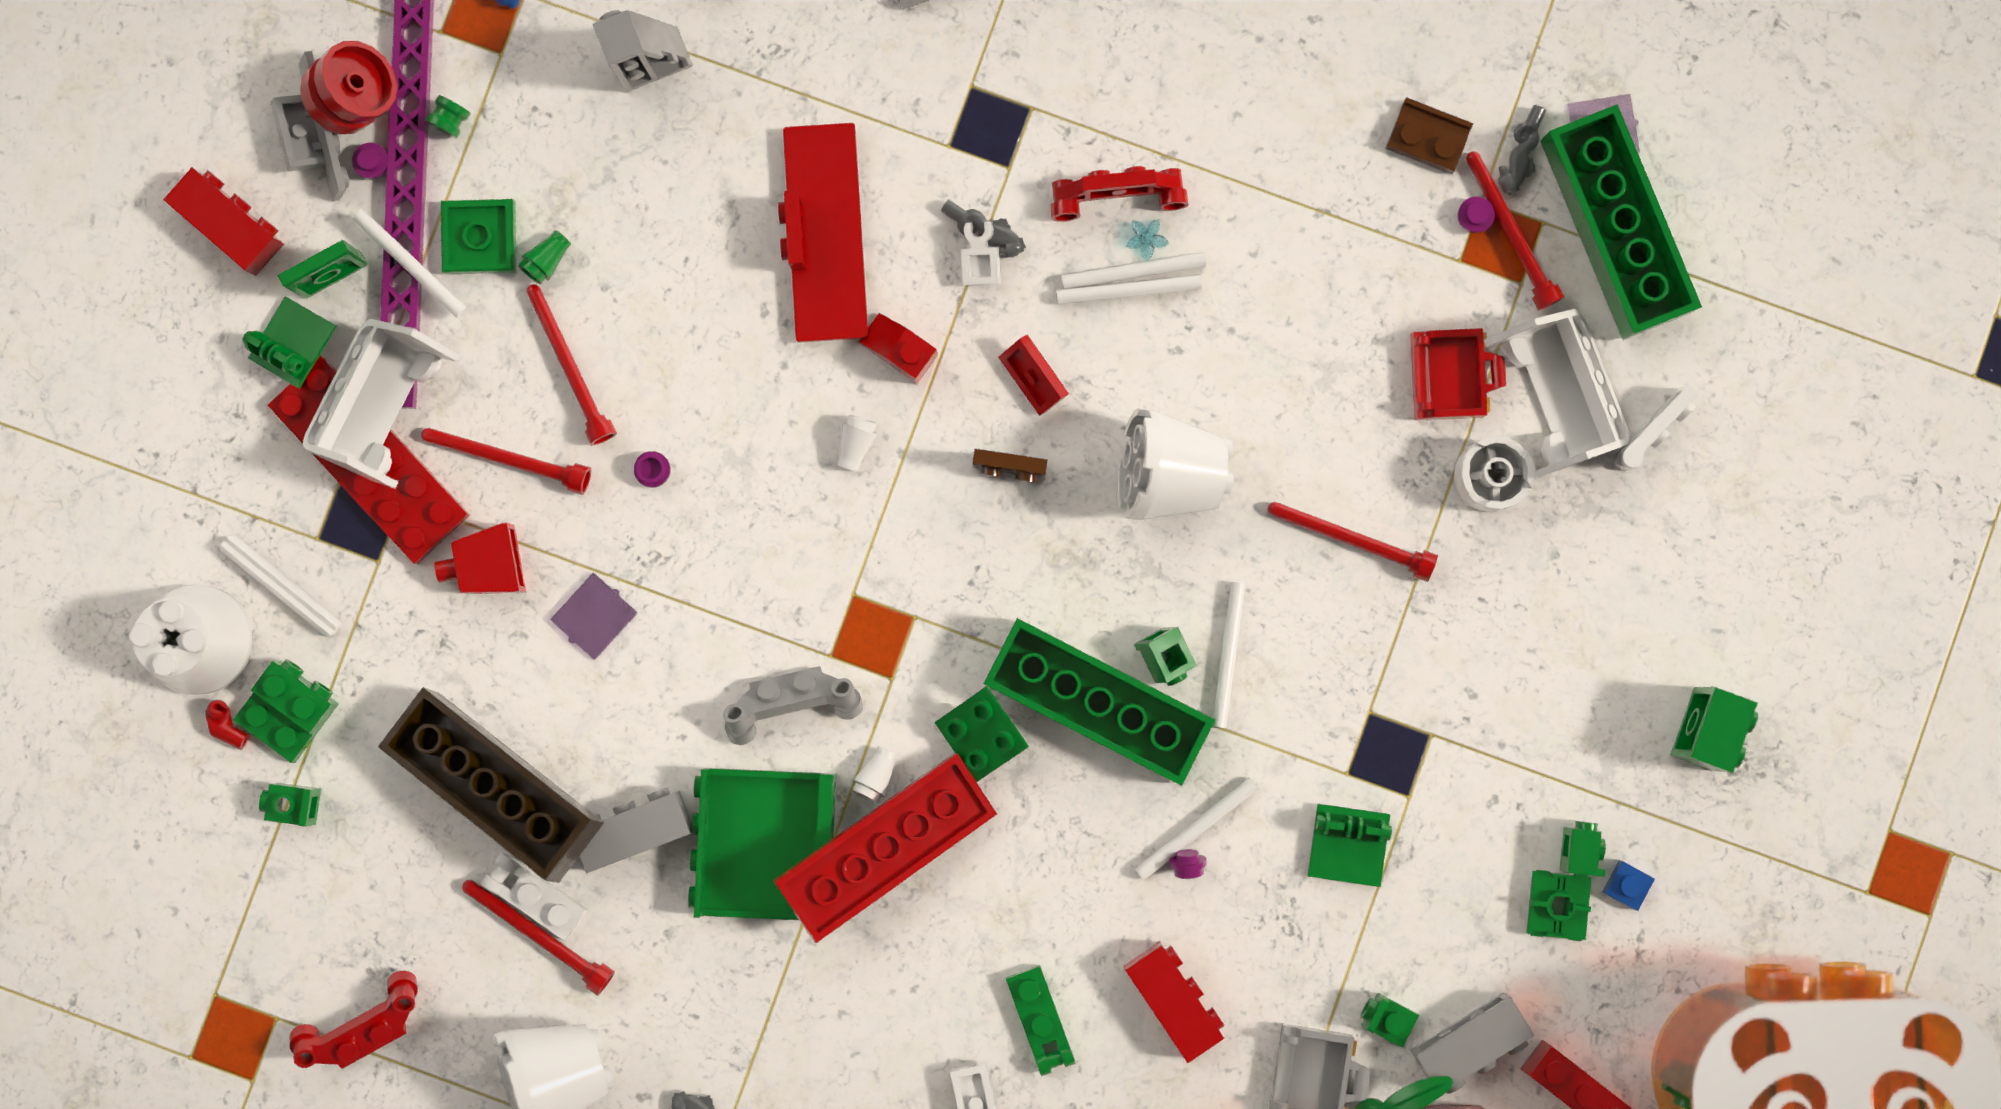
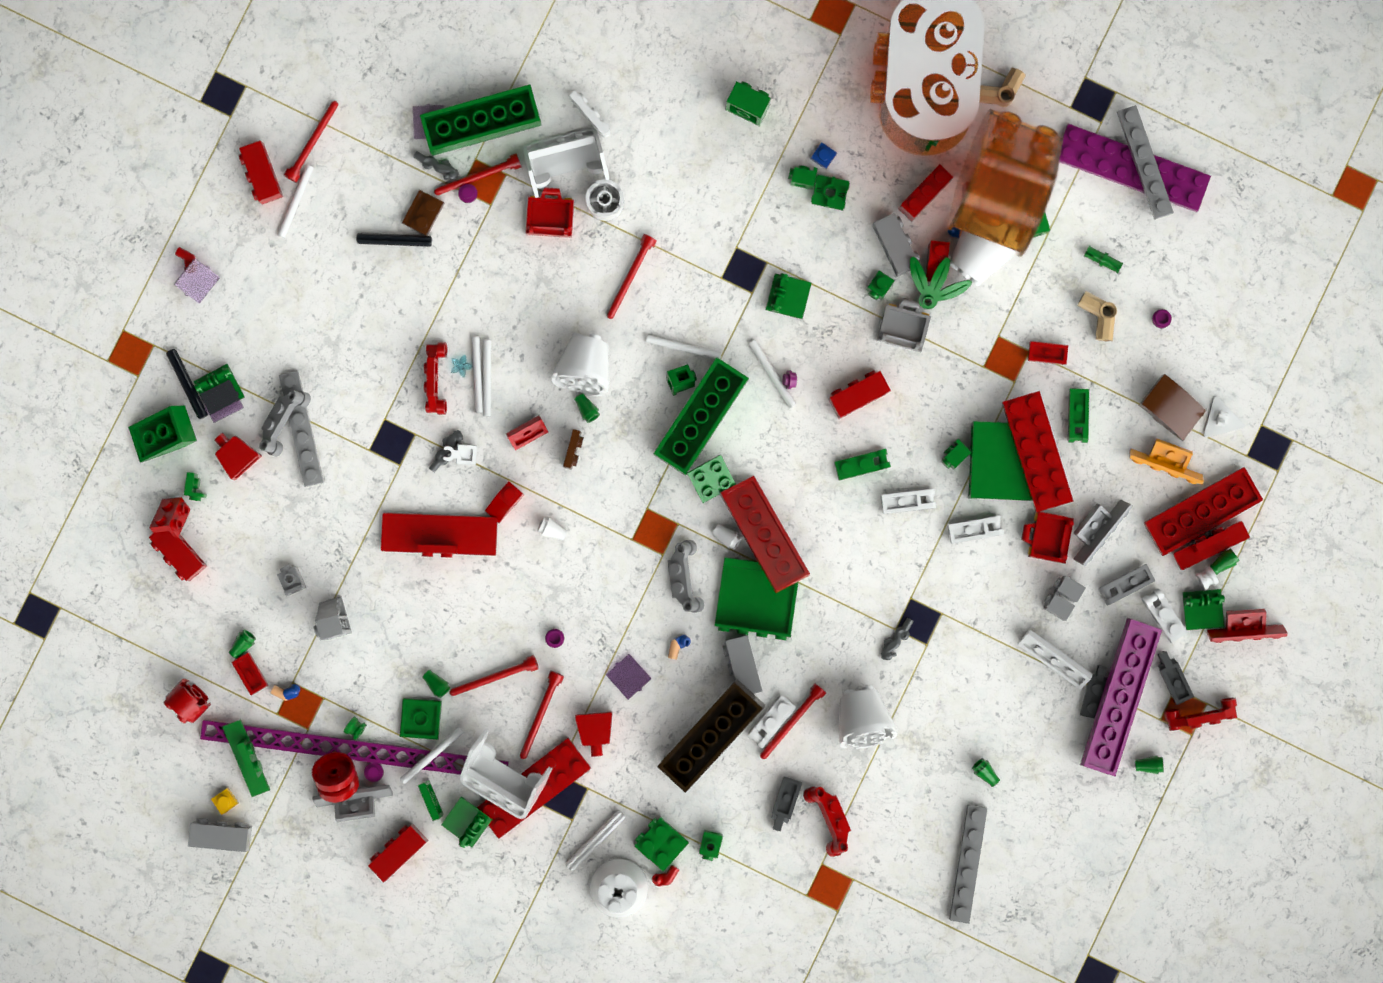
camera: 90 degrees left, 0 degrees up
(383, 938) = (785, 802): none -> dark grey hinge
(662, 701) = (677, 644): none -> arm
(1091, 483) = (587, 409): none -> green cone
(1372, 87) = (394, 239): none -> black axle

